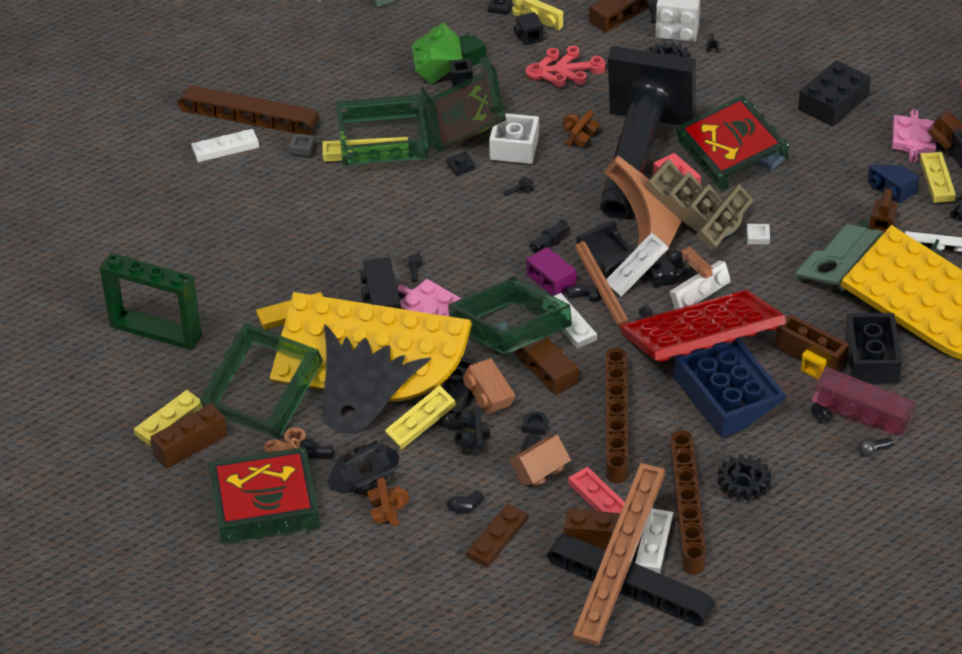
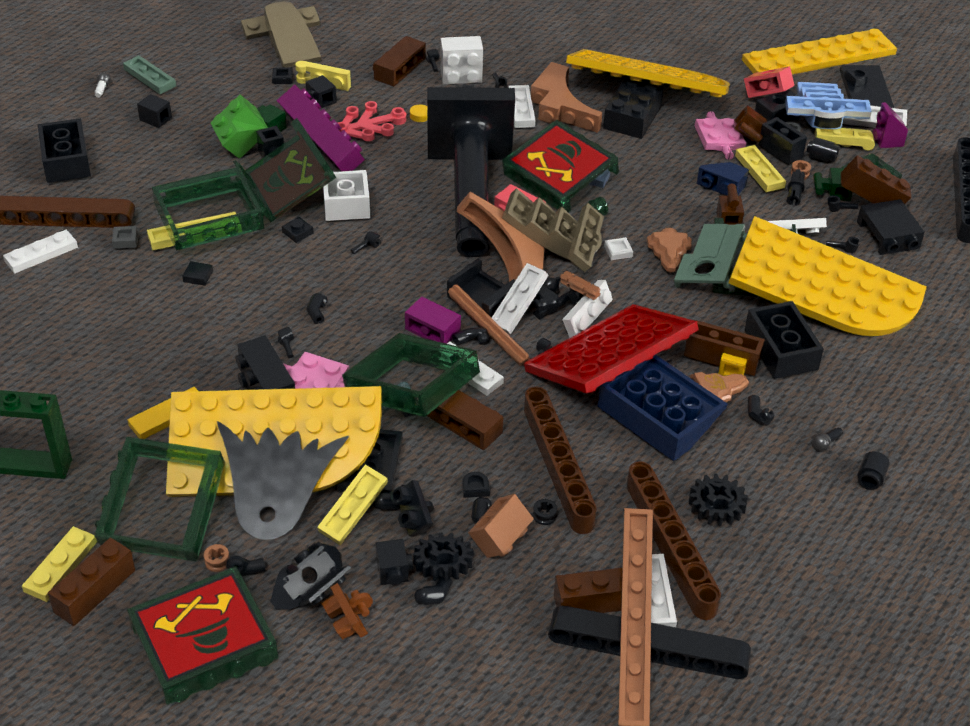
camera: 20 degrees left, 0 degrees up
(270, 52) = (63, 150): none -> black brick
(277, 445) = (201, 571): nougat arm -> none
(356, 190) = (197, 273): none -> black tile
(365, 24) = (154, 111): none -> black brick
(438, 471) = (393, 562): none -> black brick
(448, 241) = (313, 307): none -> black arm
(482, 475) = (443, 556): none -> black gear
(488, 386) = (415, 454): nougat brick -> none
(497, 535) = (483, 623): reddish brown plate -> none
(514, 67) = (323, 132): none -> magenta brick
(550, 236) = (416, 286): black pin -> none
(586, 124) = (408, 177): dark orange hips -> none
(586, 451) = (540, 517): none -> black bush
(595, 491) = (575, 550): coral plate -> none
(722, 73) = (524, 111): none -> white plate
(754, 189) = (600, 205): none -> clear green bush
(758, 73) = (558, 103): none -> nougat arch
(791, 380) = (721, 385): none -> nougat rock
(806, 239) = (669, 247): none -> nougat rock
(862, 56) = (656, 73): none -> yellow plate
(863, 401) = (800, 395): clear pink brick -> none
(901, 481) = (873, 470): none -> black brick

